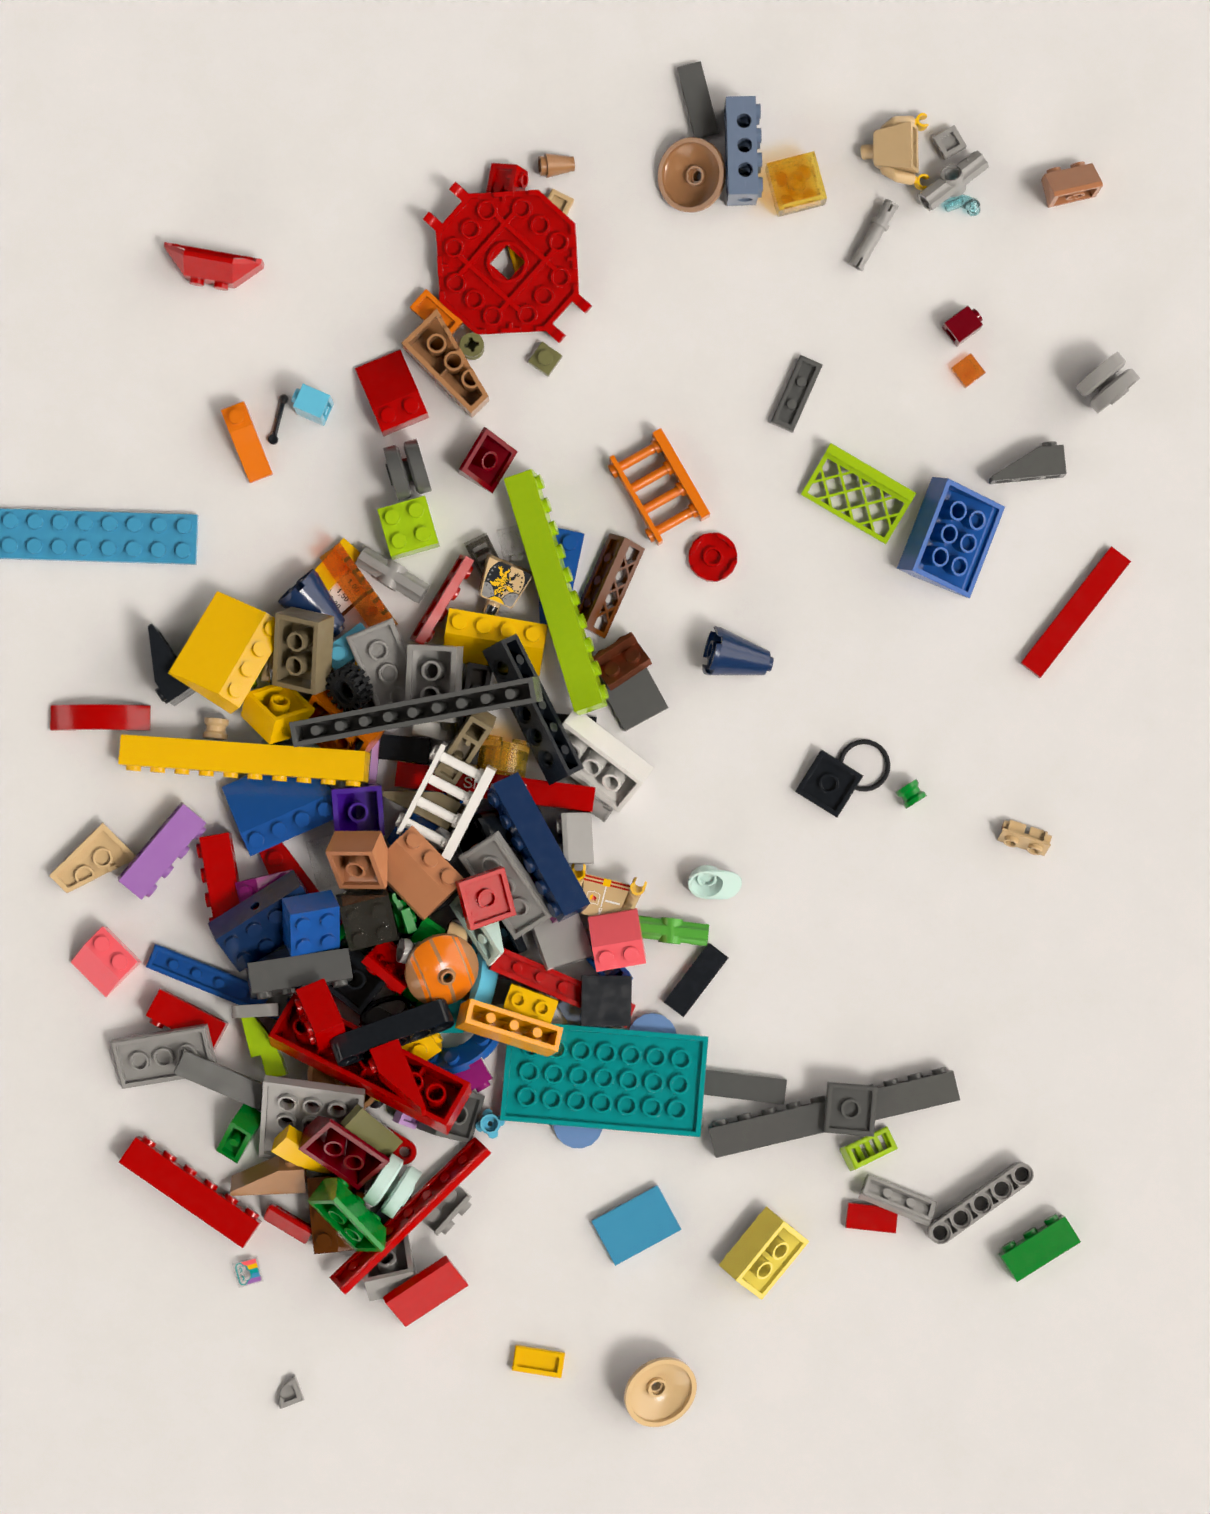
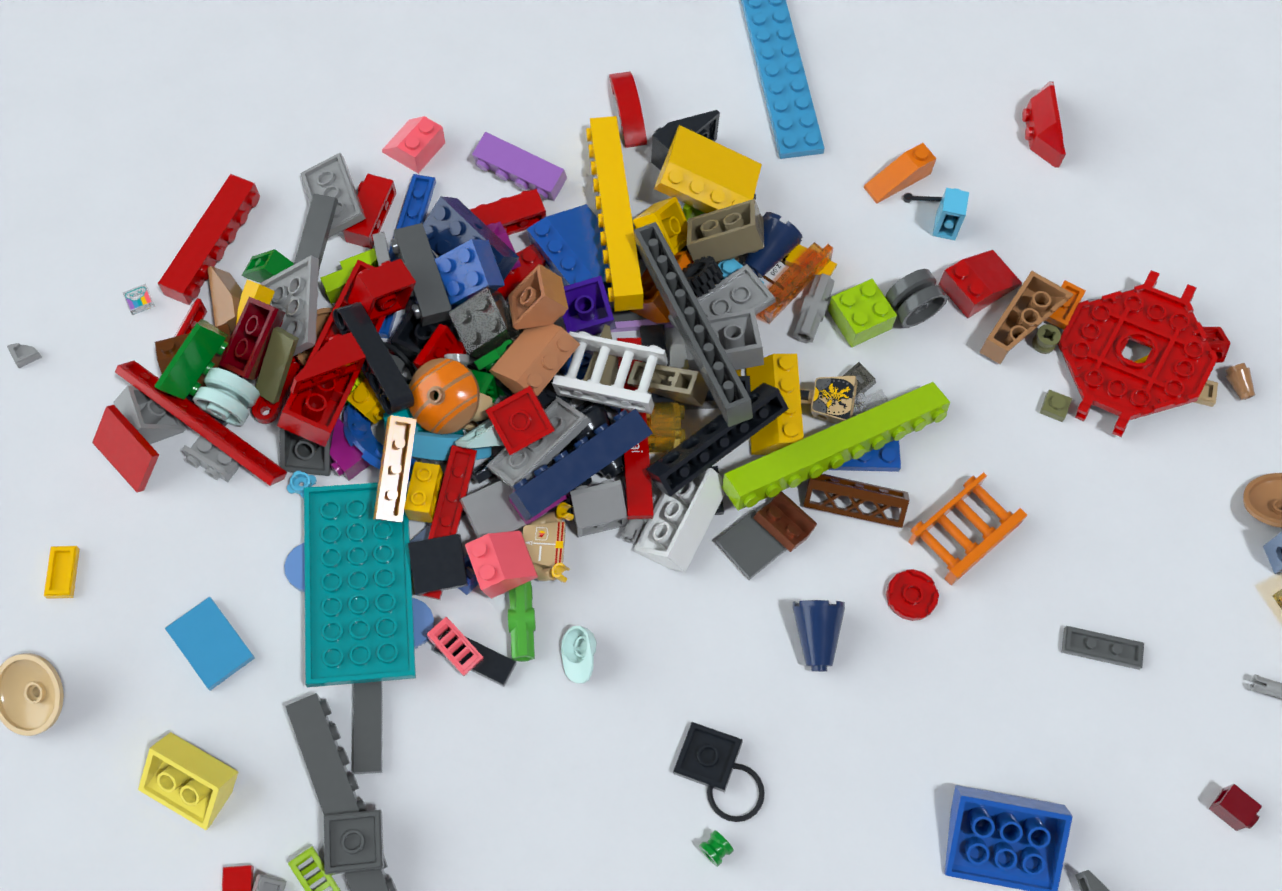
camera: 80 degrees right, 20 degrees down
(91, 859) = (502, 117): tan wing -> none
(215, 728) = (638, 191): tan wheel -> none
(448, 591) = (811, 356): red plate -> none
(487, 460) = (946, 366): dark red slope -> none
(669, 1007) = (441, 628): none -> coral slope
(870, 475) = (1045, 738): lime fence -> none
(968, 370) = (1188, 825): clear orange tile -> none

